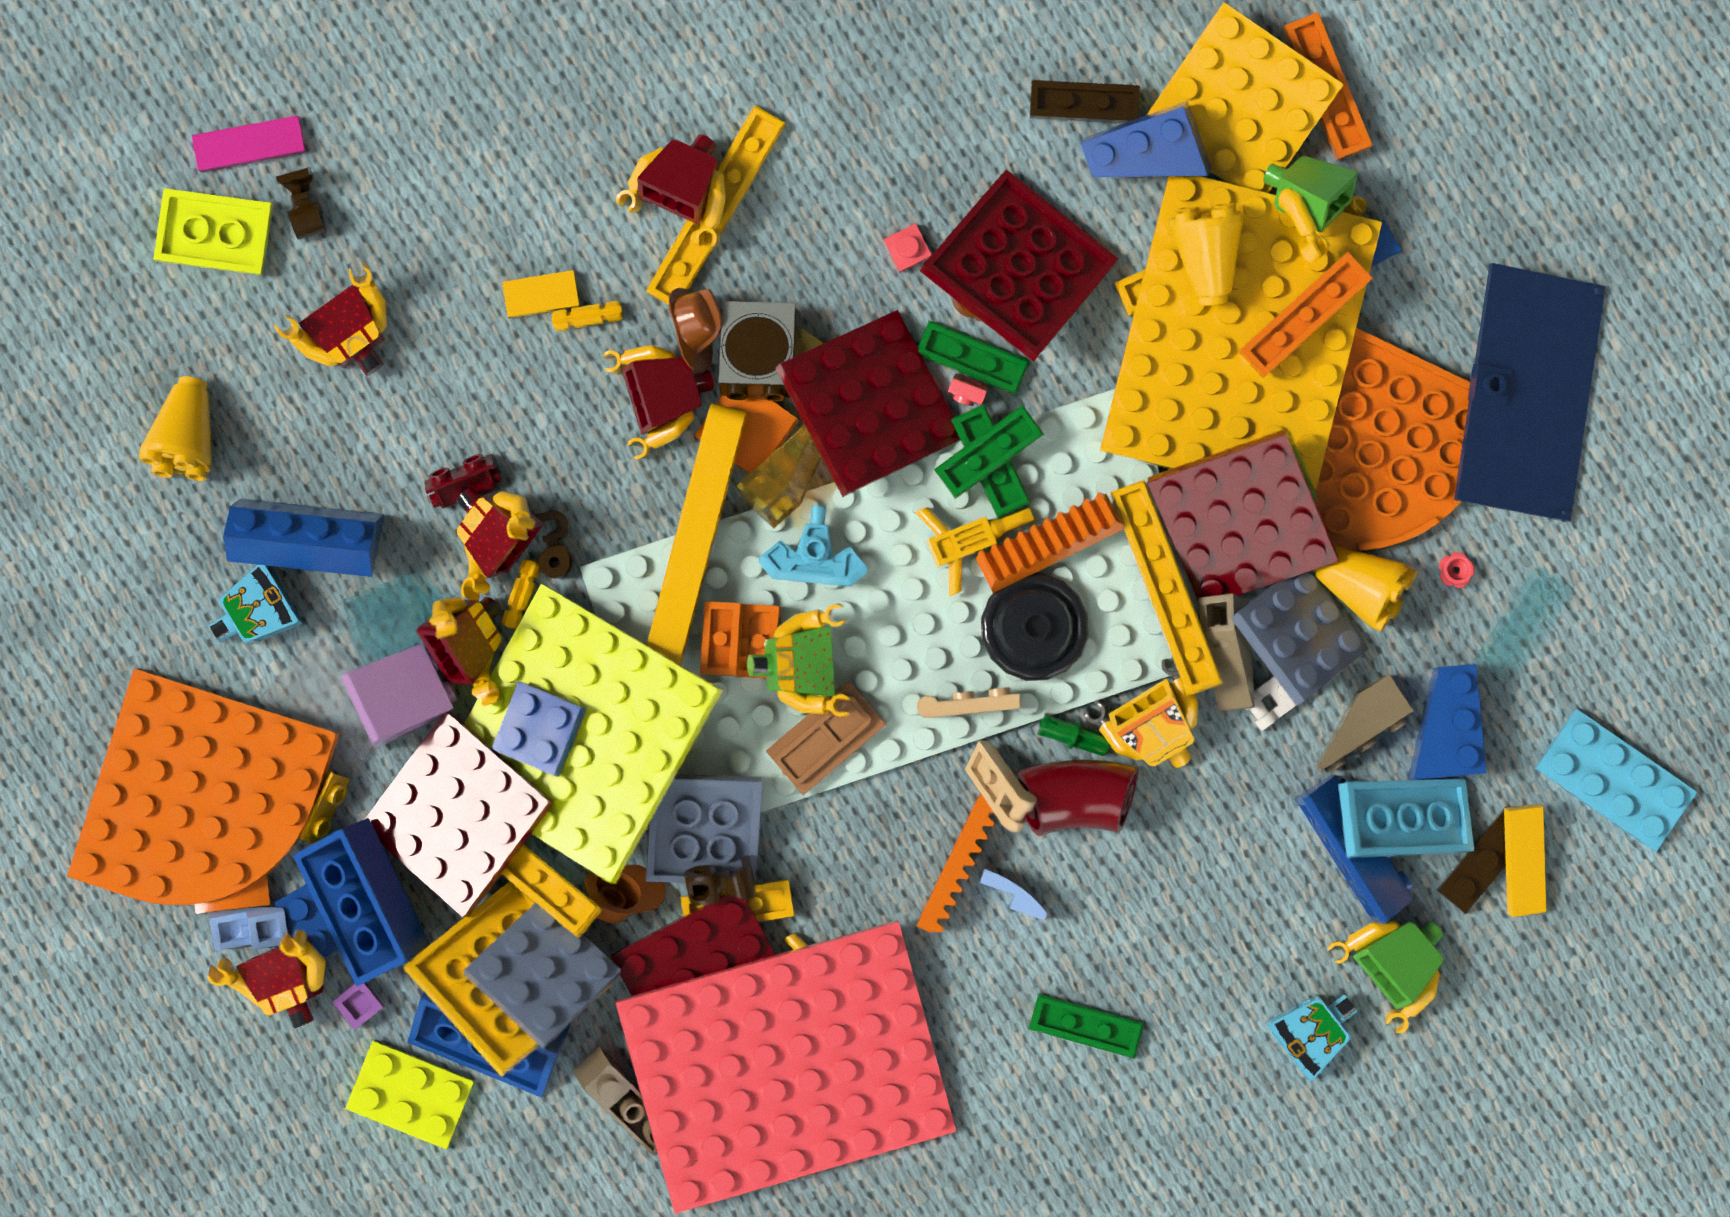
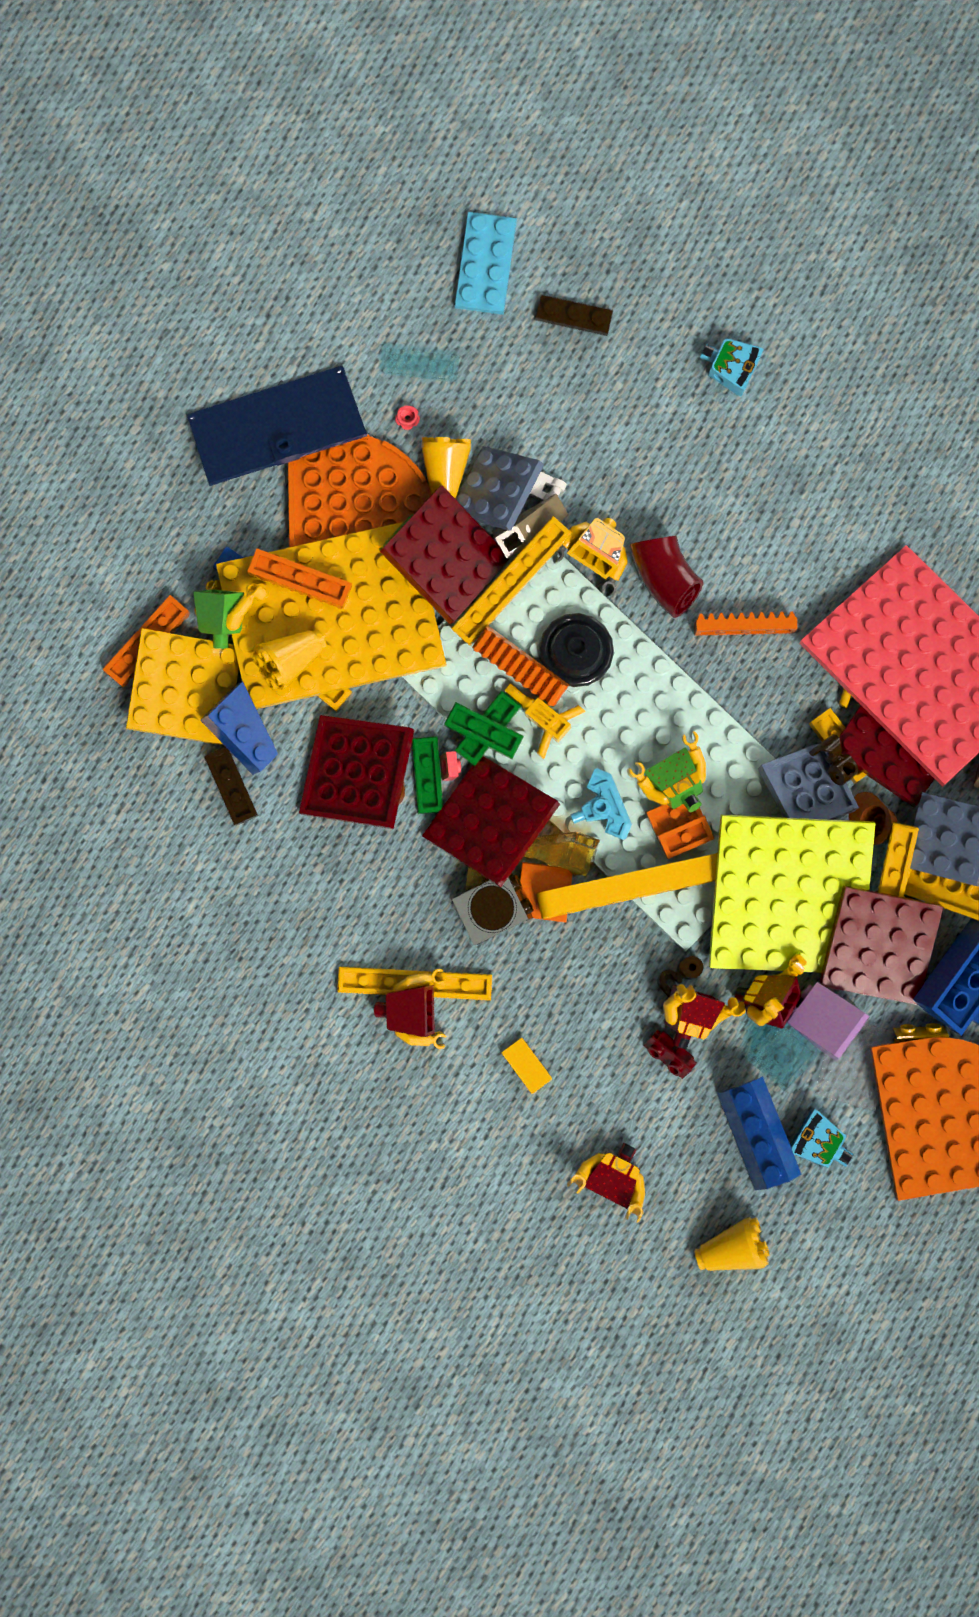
camera: 125 degrees left, 5 degrees down
(213, 232) = (595, 1298): neon yellow plate -> none
(248, 143) = (526, 1305): dark pink tile -> none
(305, 214) = (553, 1243): dark brown leg -> none
(521, 593) = (721, 979): yellow axle -> none
(538, 729) = (803, 919): plate -> none
(587, 315) = (525, 1029): yellow axle -> none
(661, 392) = (551, 955): dark red torso -> none
(697, 325) = (496, 954): dark orange piece -> none
(825, 740) = (718, 744): medium nougat piece -> none
(907, 248) = (379, 850): coral plate -> none
(966, 703) = (646, 665): tan plate -> none
(999, 786) = (686, 620): tan plate -> none
(1020, 901) = (746, 576): light blue slope -> none
(1073, 735) = (629, 595): green axle -> none
(1086, 1026) = (800, 500): green tile -> none
(1368, 714) = (524, 425): dark tan slope -> none
(1371, 878) = (610, 392): blue slope -> none
(1399, 963) = (664, 332): bright green torso -> none
(1406, 817) = (576, 369): medium azure plate -> none
(1450, 726) = (506, 372): blue wedge -> none
(1525, 860) = (563, 290): yellow tile -> none

